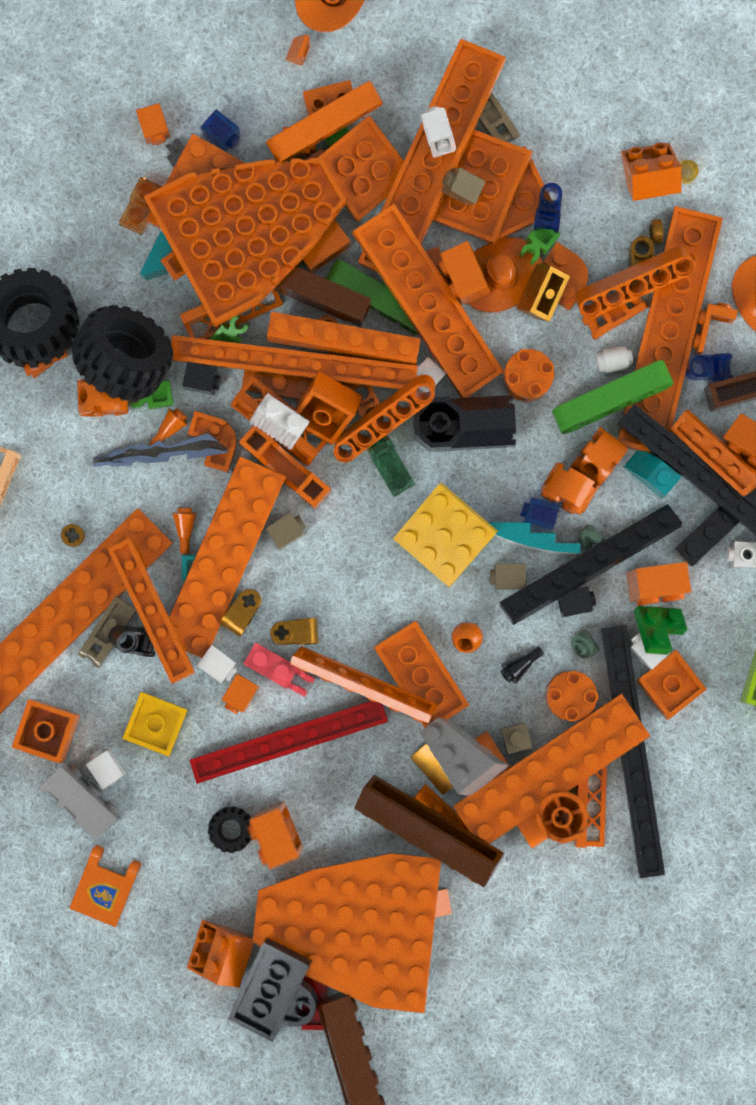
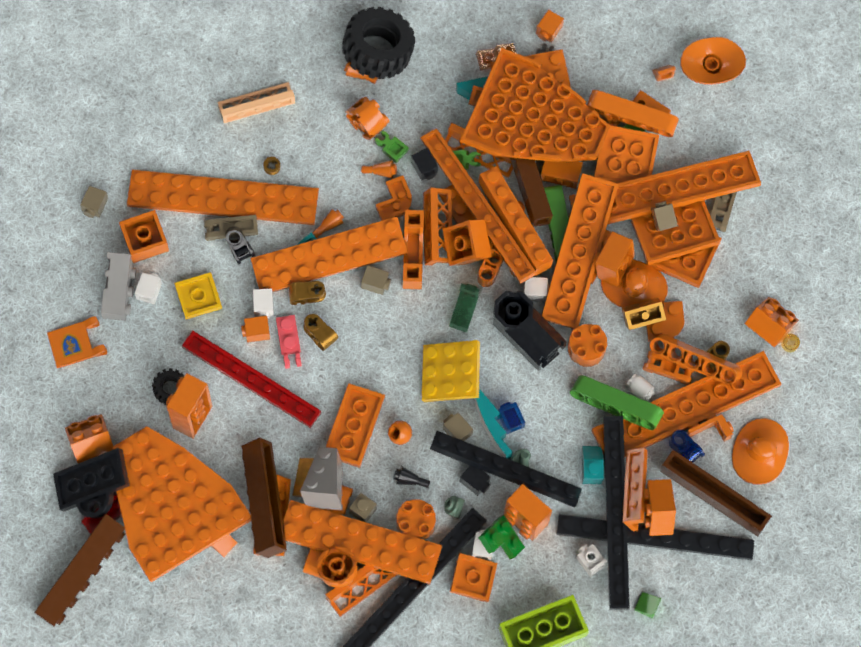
camera: 45 degrees right, 15 degrees down
(113, 372) = (385, 107): black tyre -> none
(151, 611) = (264, 238): orange plate -> none
(158, 452) = (361, 174): sand blue sword -> none
(221, 131) = (578, 65): clear blue brick -> none
(279, 421) = (436, 221): white brick -> none
(364, 684) = (321, 393): orange plate -> none
(388, 408) = (496, 281): orange beam -> none
(438, 131) = (681, 176): white brick -> none
(539, 242) = (675, 289): bright green plate -> none
(548, 212) = (692, 279): clear blue piece -> none
(569, 488) = (540, 419): orange brick -> none
(599, 456) = (574, 422): orange brick -> none
(656, 231) = (738, 352): pearl gold tile -> none

